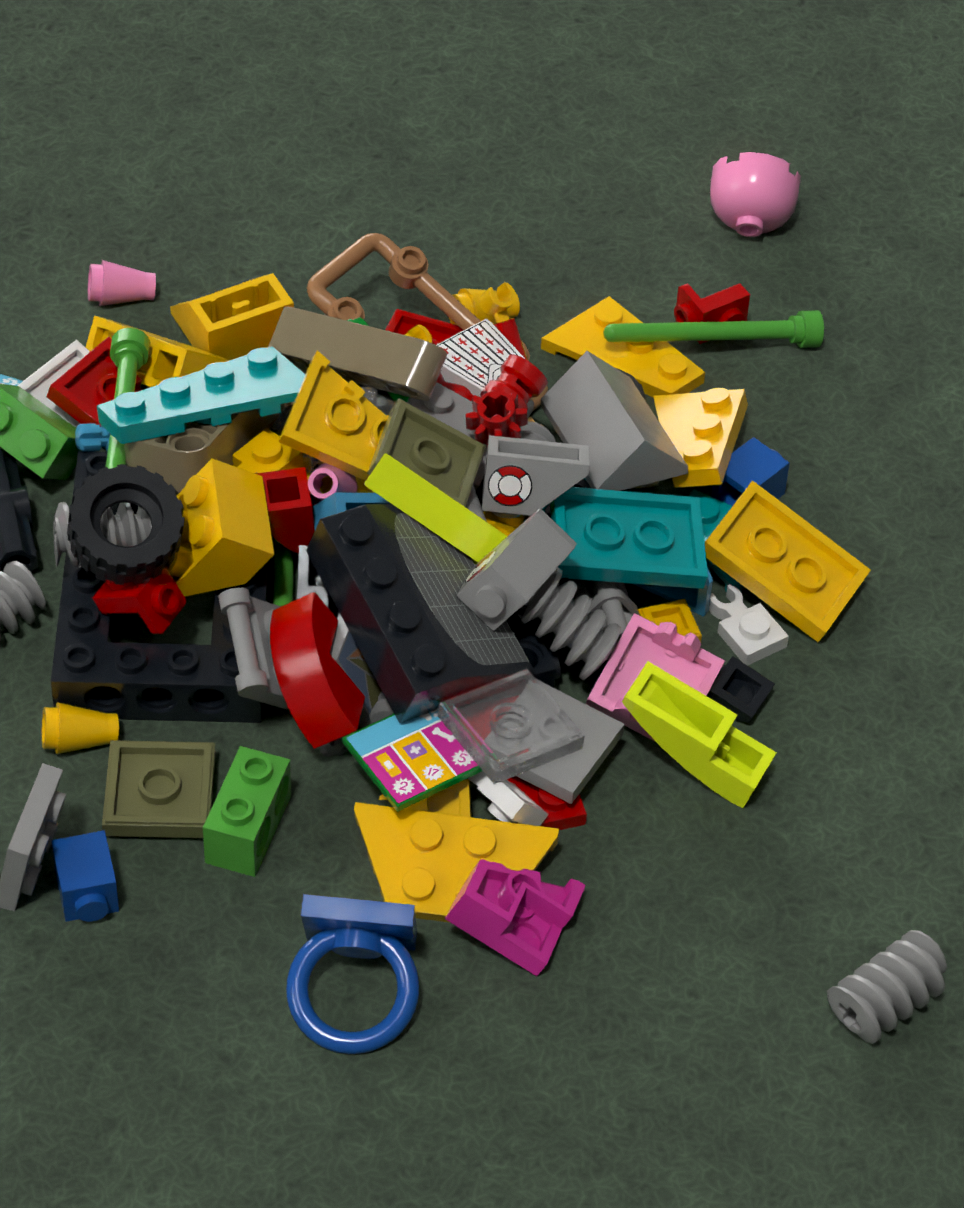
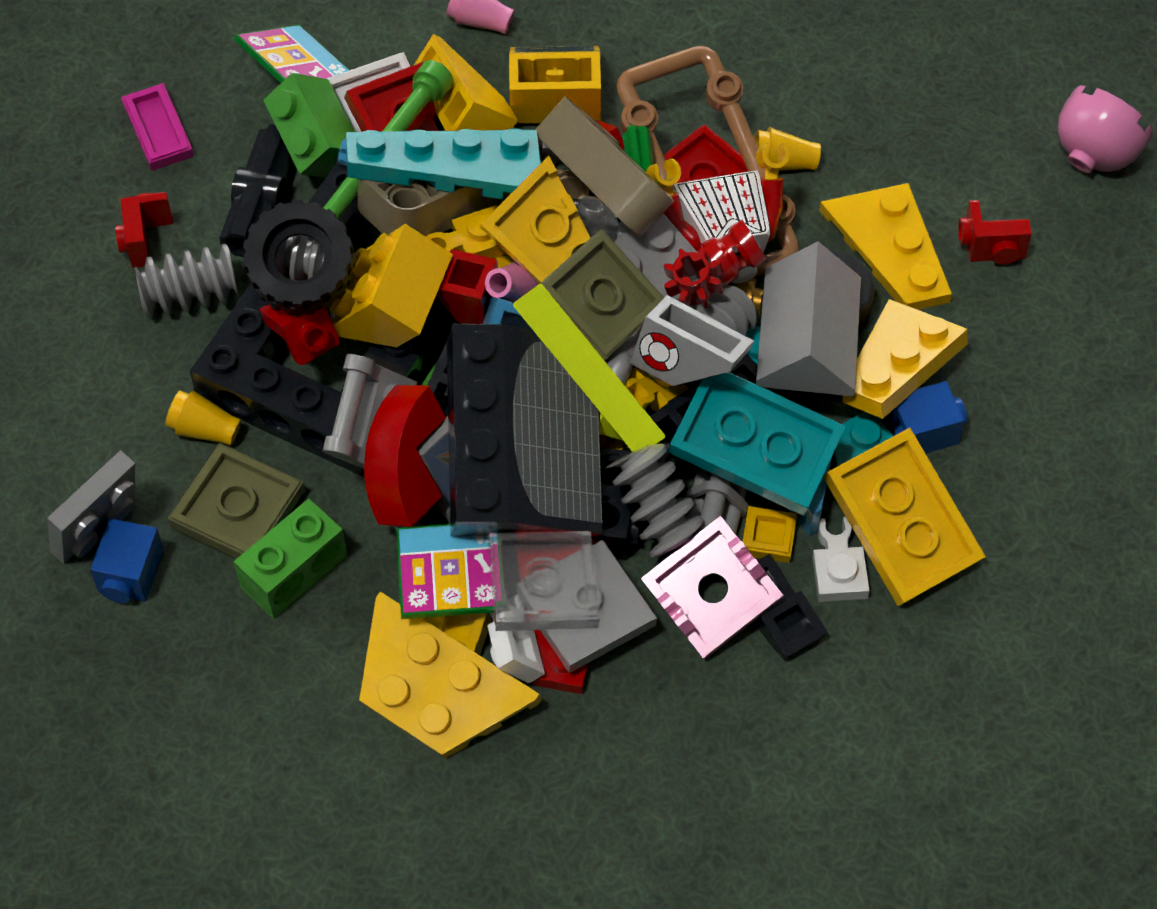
camera: 30 degrees right, 10 degrees up
(356, 931) = (311, 719): blue tile -> none
(514, 912) = (460, 755): dark pink slope -> none
(515, 569) = (615, 436): light grey slope -> none
(698, 734) = (715, 656): neon yellow slope -> none
(804, 329) = (1069, 285): bright green piece -> none

